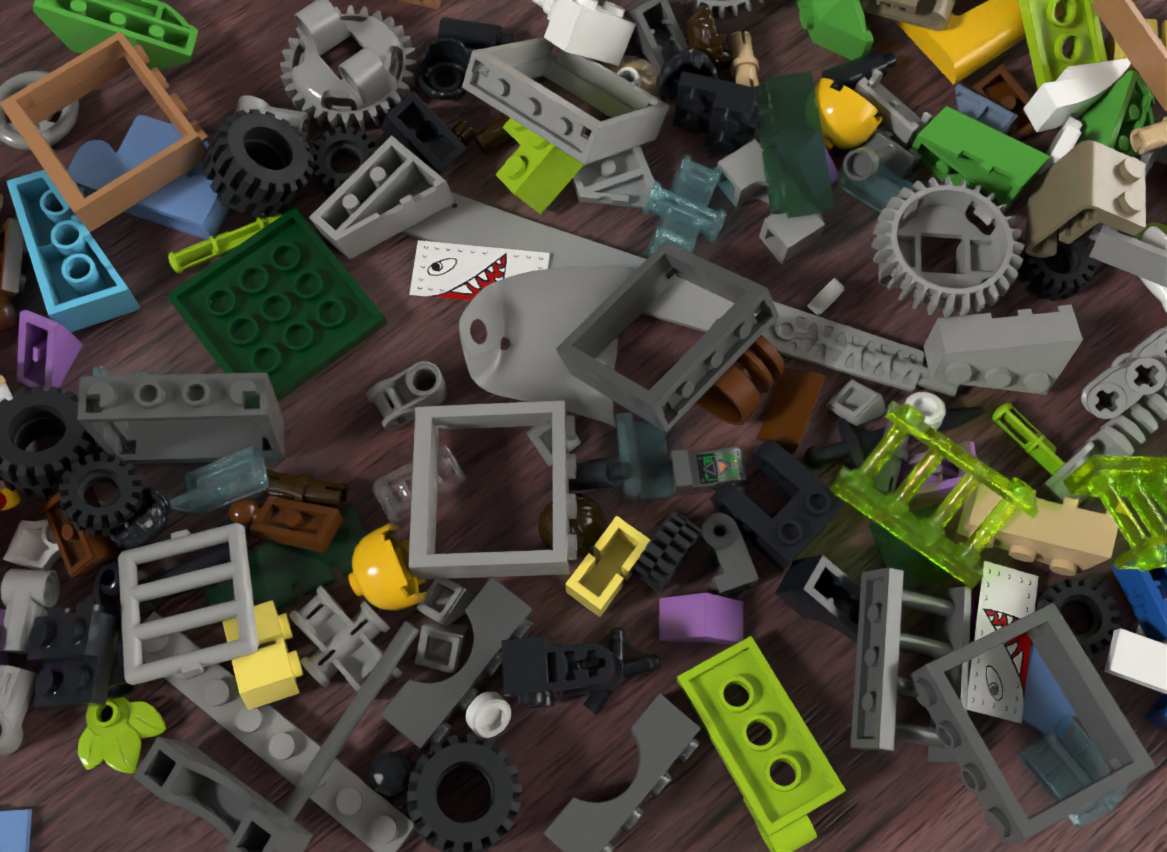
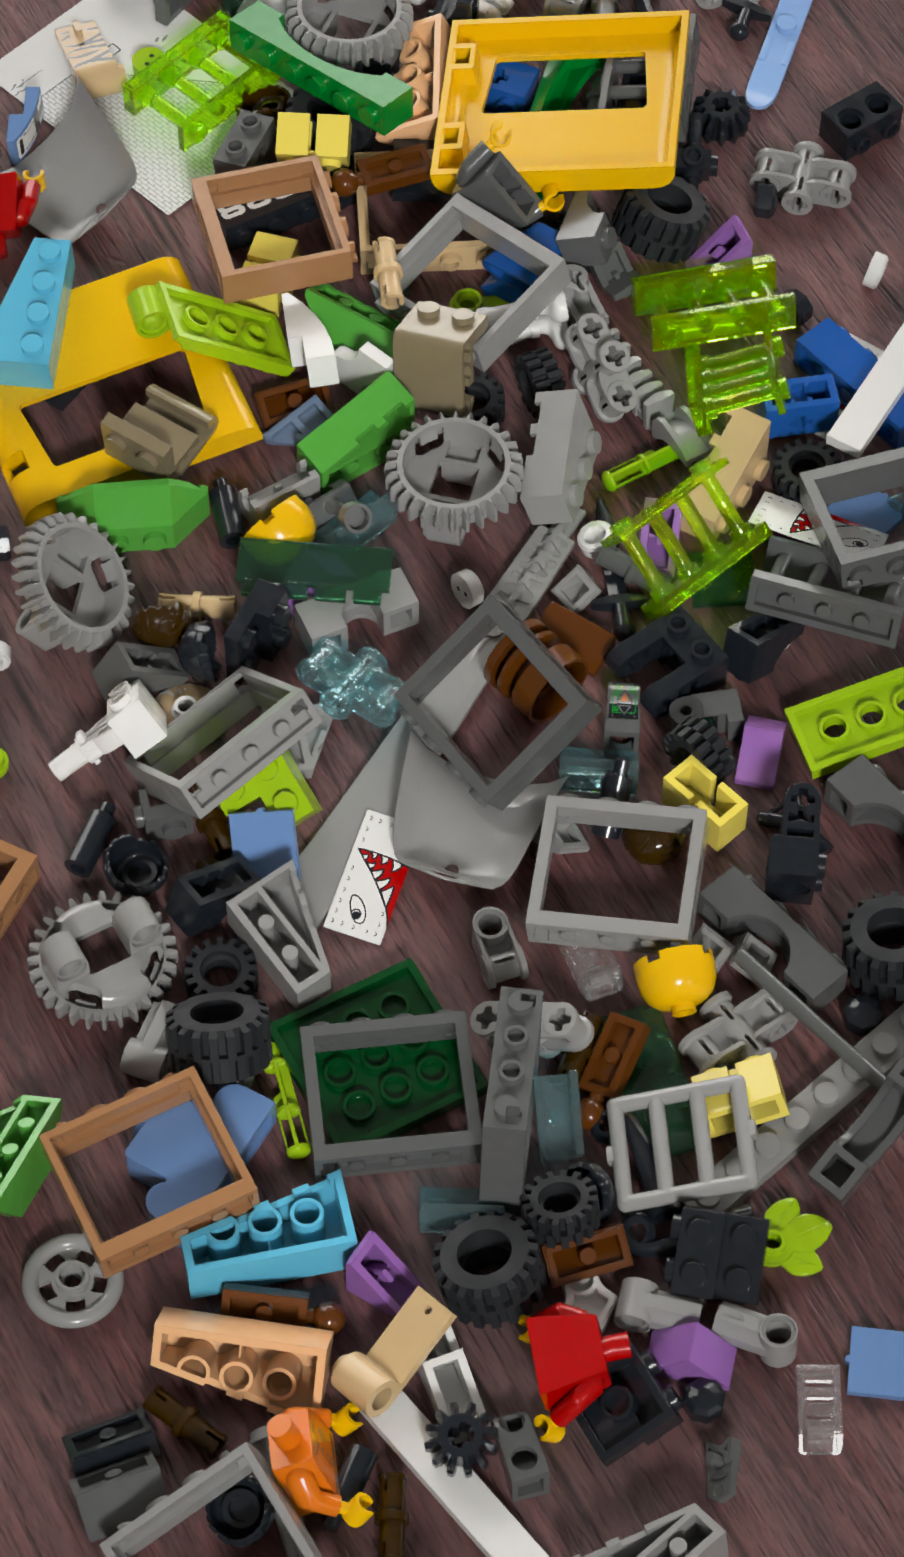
camera: 80 degrees left, 15 degrees down
(146, 269) = (399, 1152): none -> dark grey window
(304, 446) = (560, 1027): none -> light grey axle
(480, 167) = (265, 839): none -> medium blue piece
(488, 714) = (822, 924): white tile -> none
(1105, 315) = (537, 373): none -> black tyre

